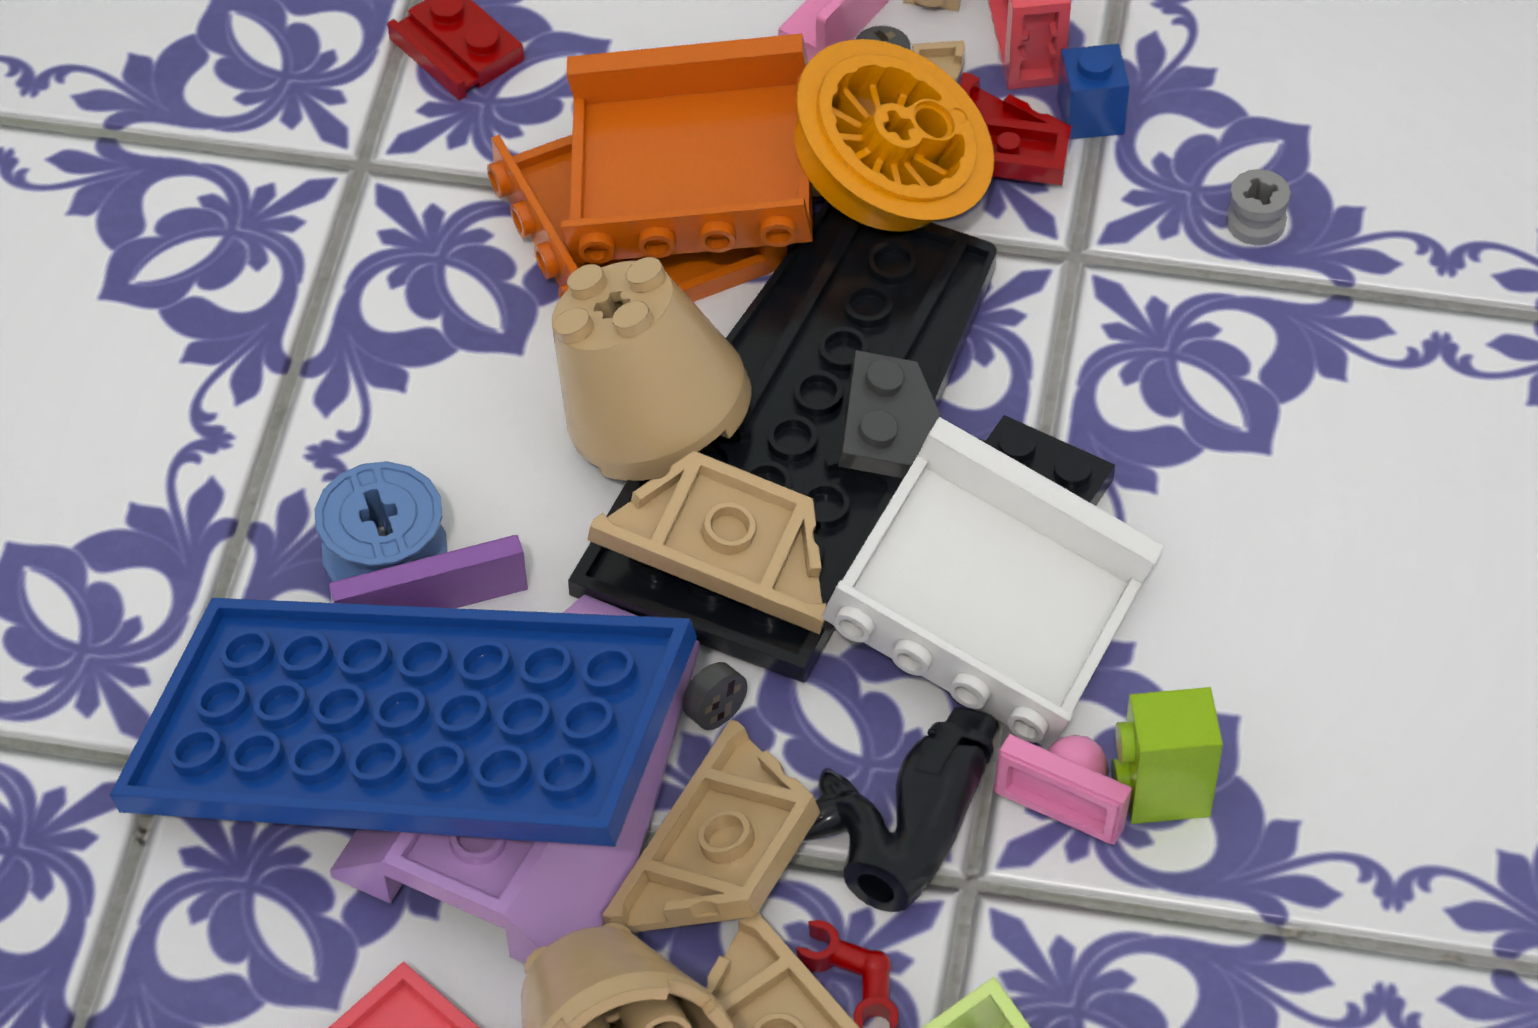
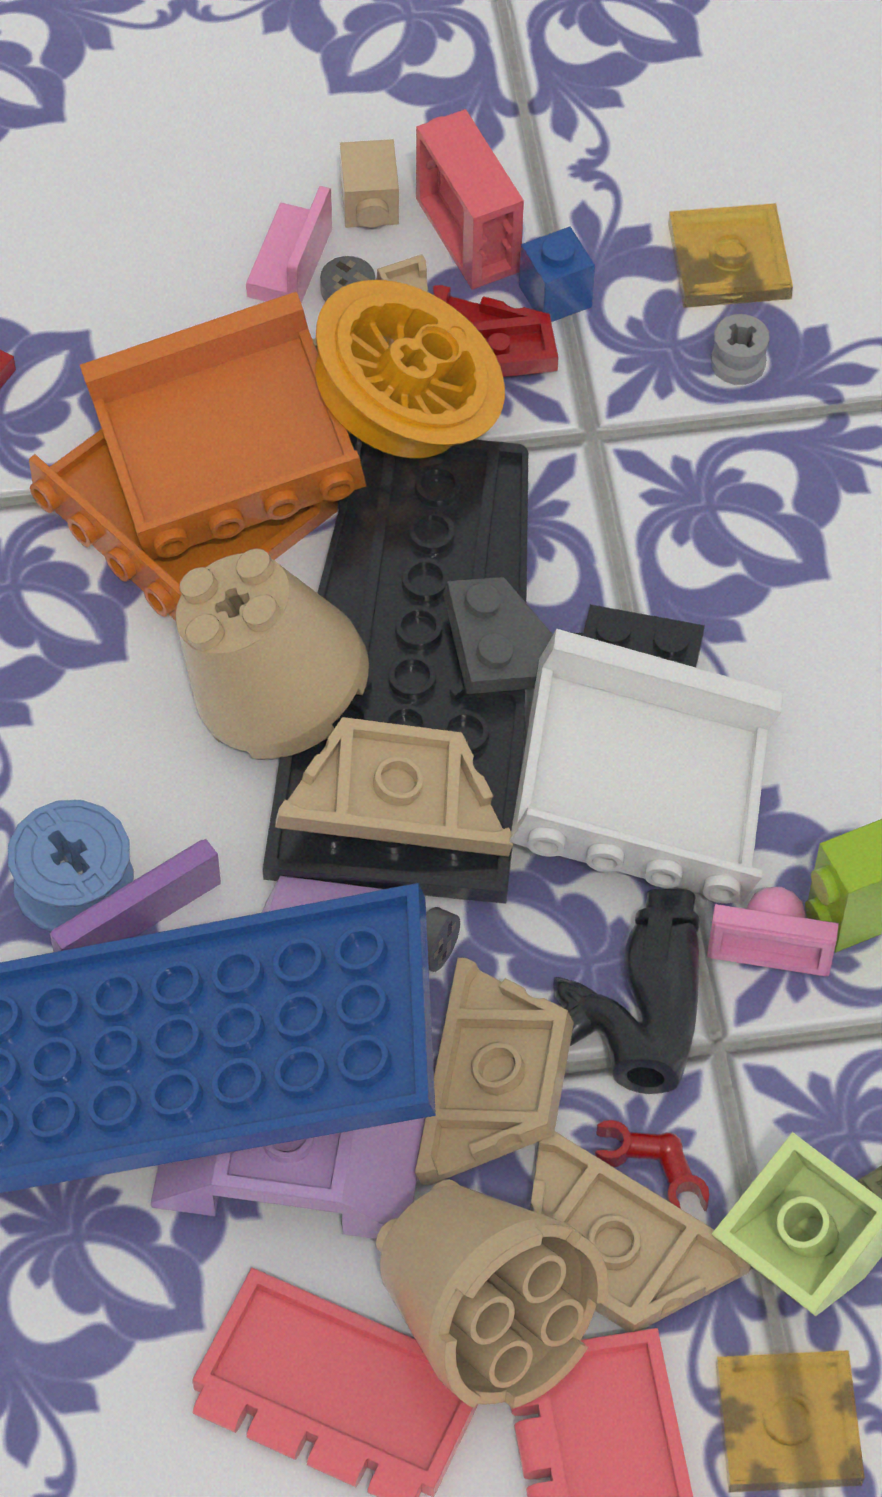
camera: 20 degrees left, 5 degrees up
(1286, 116) = (730, 255): none -> clear yellow tile

